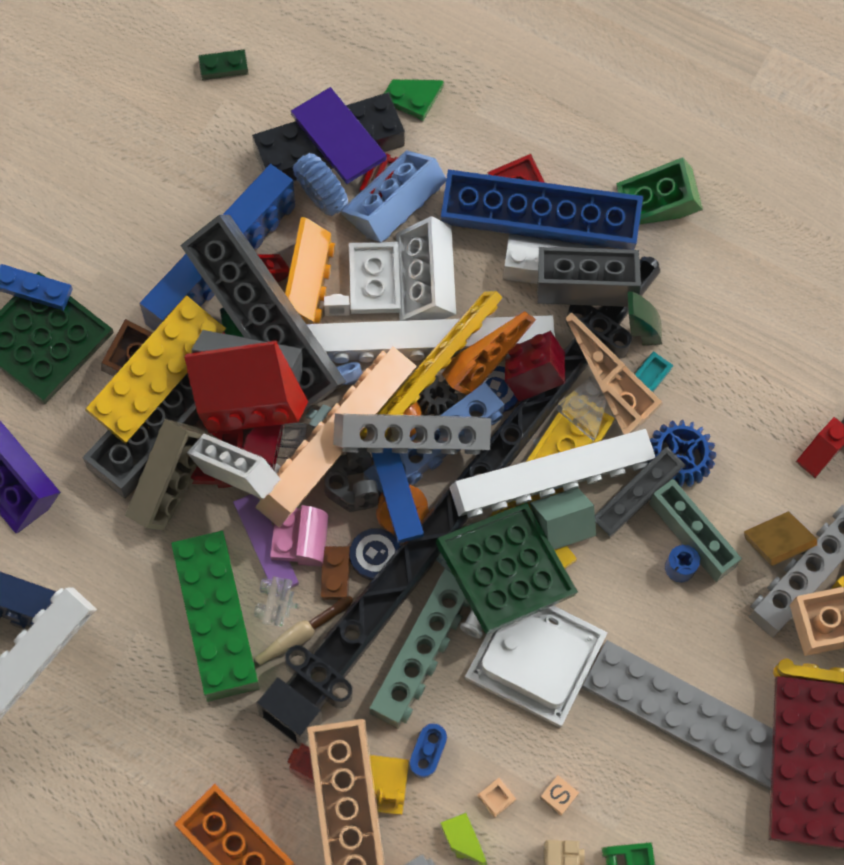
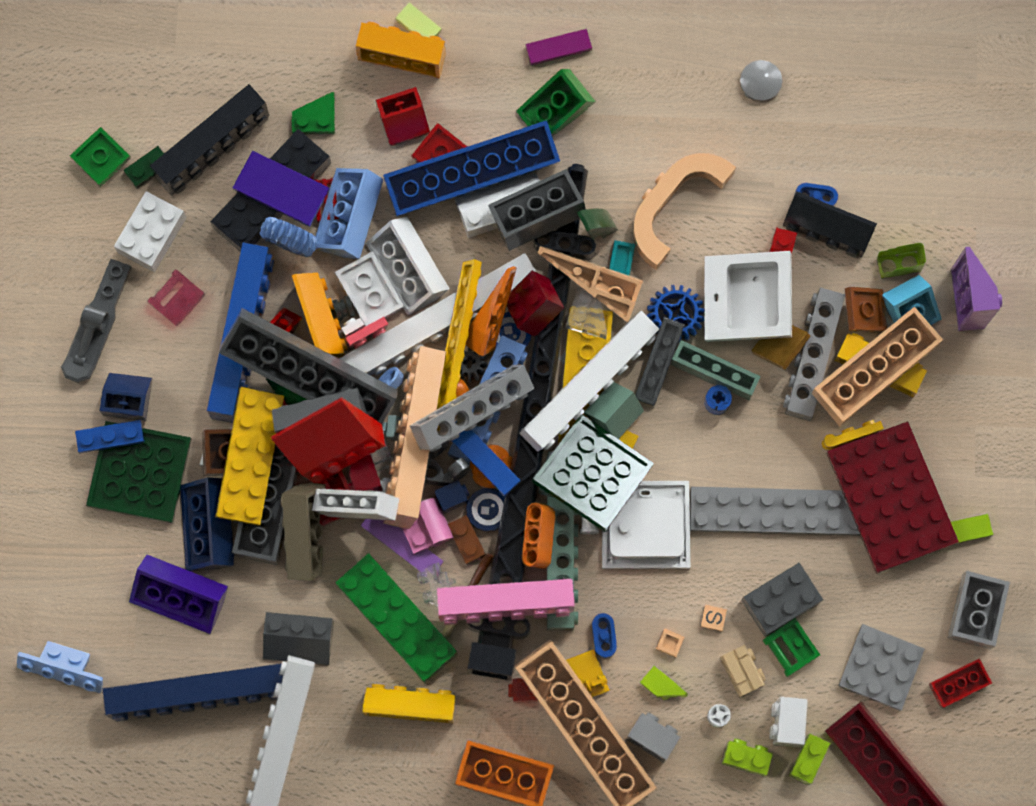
camera: 25 degrees left, 10 degrees up
(71, 259) = (126, 396): none -> dark blue slope
(71, 429) = (205, 536): none -> dark blue slope
(86, 179) = (95, 324): none -> dark grey piece
(102, 581) = (297, 637): none -> dark grey slope
(175, 713) = (409, 704): none -> yellow slope
(182, 200) = (181, 303): none -> clear pink plate
(183, 33) = (100, 156): none -> green plate
(189, 120) = (150, 231): none -> white brick
(296, 63) = (210, 140): none -> black brick
(337, 650) = (505, 600): none -> bright pink brick
(338, 281) = (343, 308): none -> pearl dark grey wheel
(344, 520) = (452, 496): none -> dark blue brick
(346, 311) = (374, 329): none -> coral plate
(412, 604) = (538, 536): none -> orange beam
(498, 131) = (402, 116): none -> red slope
(530, 70) = (400, 49): none -> light orange brick
(561, 60) = (416, 21): none -> yellowish green tile
(647, 813) = (782, 599): none -> dark grey brick
(691, 145) = (558, 47): none -> magenta tile
(761, 317) = (696, 165): none -> light nougat arch
(772, 473) = (751, 294): none -> white piece

